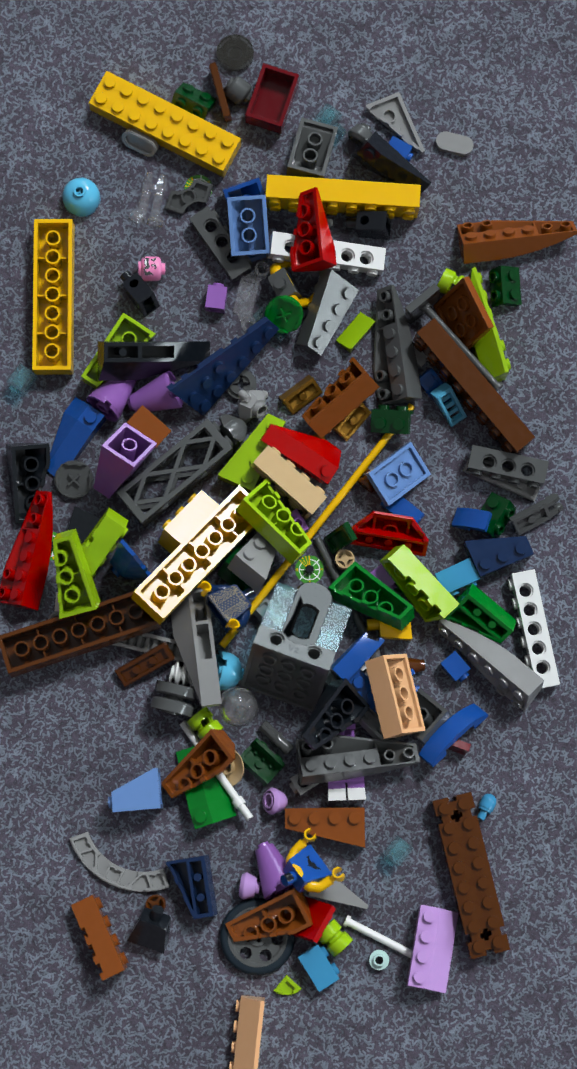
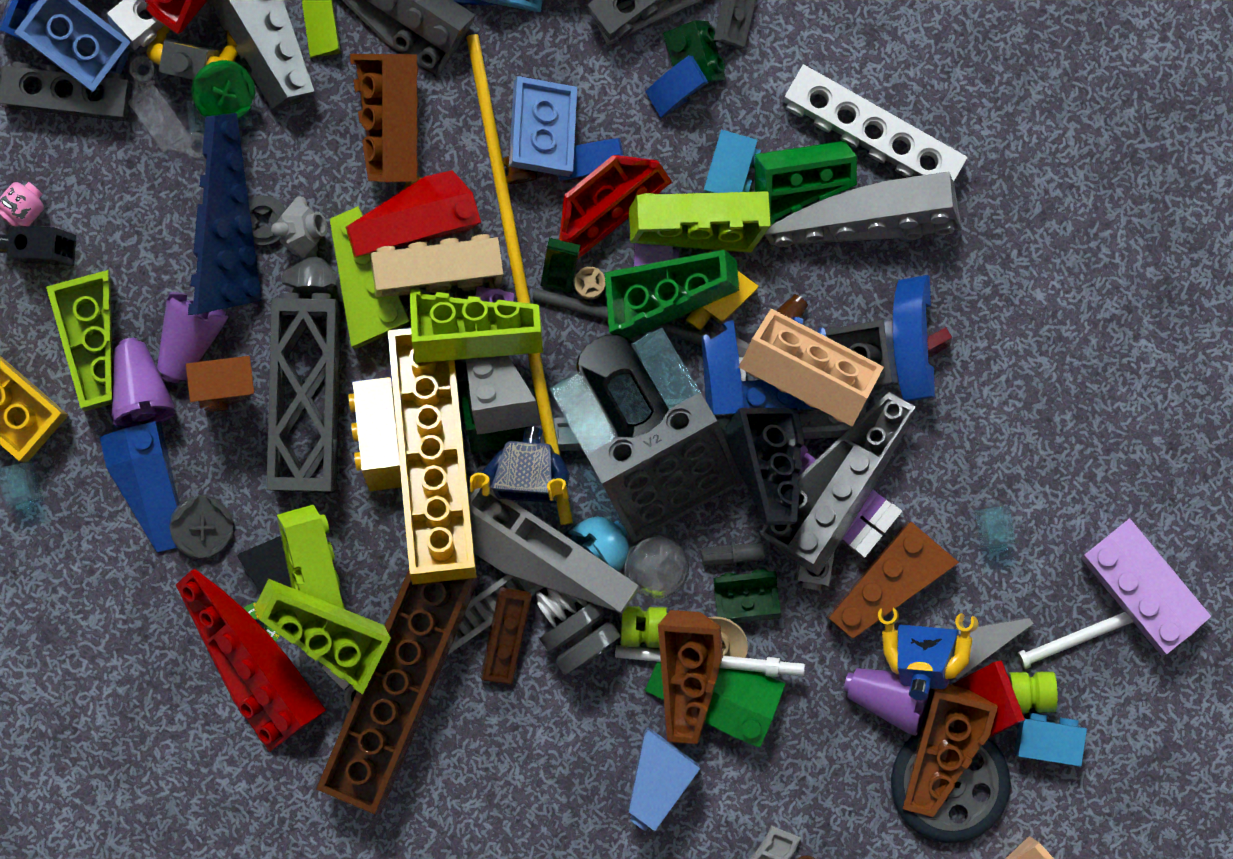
camera: 50 degrees left, 5 degrees up
(27, 473) = (143, 577): black wedge -> none
(121, 458) = (228, 447): medium lavender slope -> none
(128, 564) = (367, 551): blue wedge -> none
(147, 358) = (130, 308): black wedge -> none
(196, 884) = (825, 803): dark blue wedge -> none
(216, 298) = (128, 156): medium lavender brick -> none
(248, 886) = (882, 741): lavender cone -> none
(274, 801) = (807, 622): lavender cone -> none
(287, 987) = (1040, 798): lime tile -> none
(300, 394) = (339, 158): pearl gold slope -> none
(309, 569) = (564, 336): bright green piece -> none
(352, 422) = (430, 126): pearl gold slope -> none
(376, 953) = (1093, 661): light aqua plate -> none
(391, 420) = (468, 76): dark green bracket -> none
(455, 667) = (836, 264): blue brick -> none
(470, 875) = (1099, 464): reddish brown brick -> none
(486, 806) = (1033, 373): dark azure cylinder -> none
(497, 553) = (744, 93): dark blue wedge -> none

